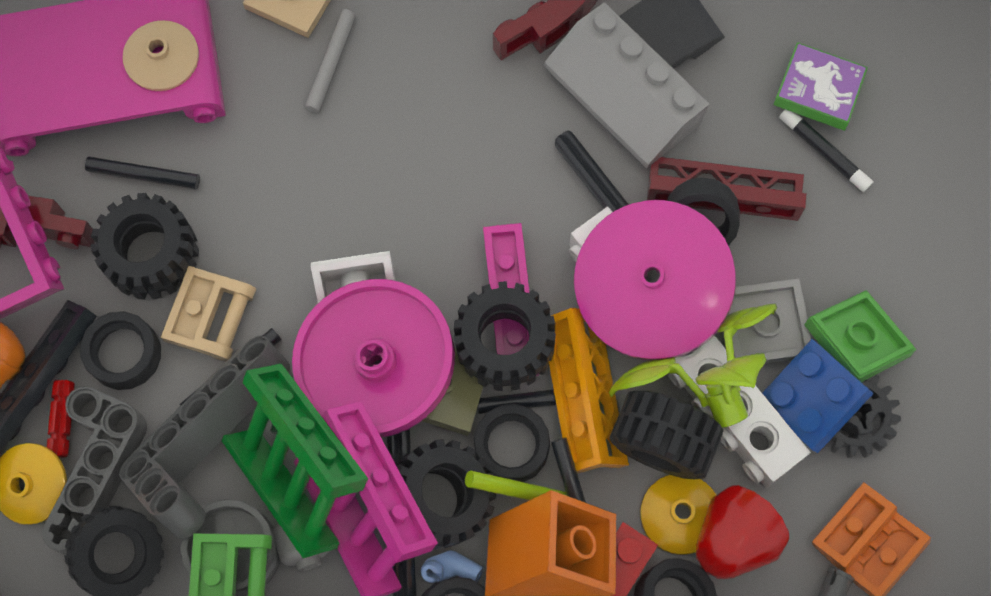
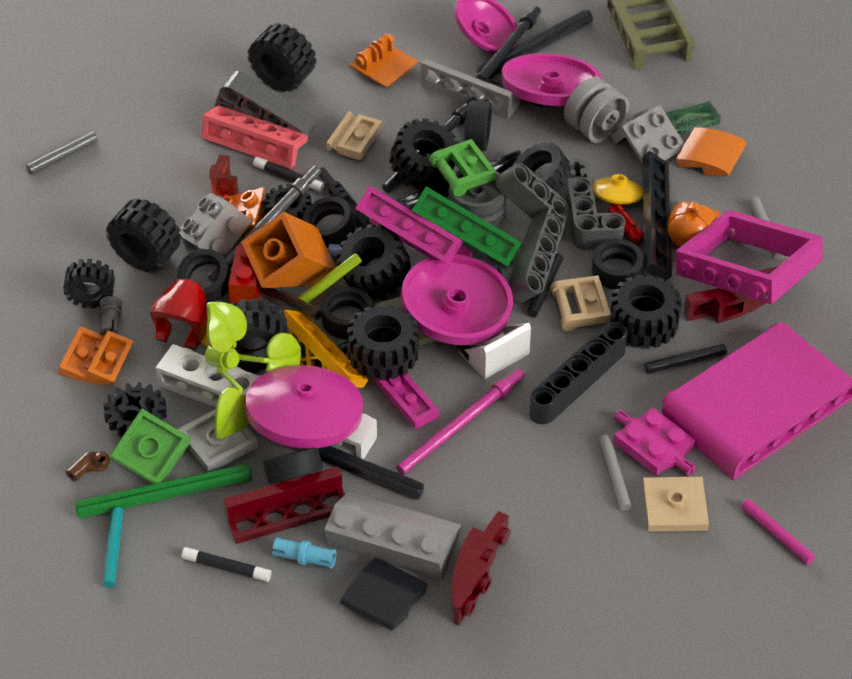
camera: 150 degrees right, 25 degrees down
(162, 69) = (722, 405): tan dish -> none
(260, 76) = (654, 441): none -> dark pink plate
(264, 199) = (578, 373): none -> black beam
(388, 233) = (498, 390): none -> dark pink bar
(735, 116) = (304, 552): none -> medium azure pin
(816, 395) = (166, 397): blue plate -> none
(820, 86) = (250, 598): tile -> none
(861, 280) = (163, 490): none -> green axle
(939, 369) = (88, 463): none -> reddish brown arm
(947, 234) = (113, 547): none -> teal bar

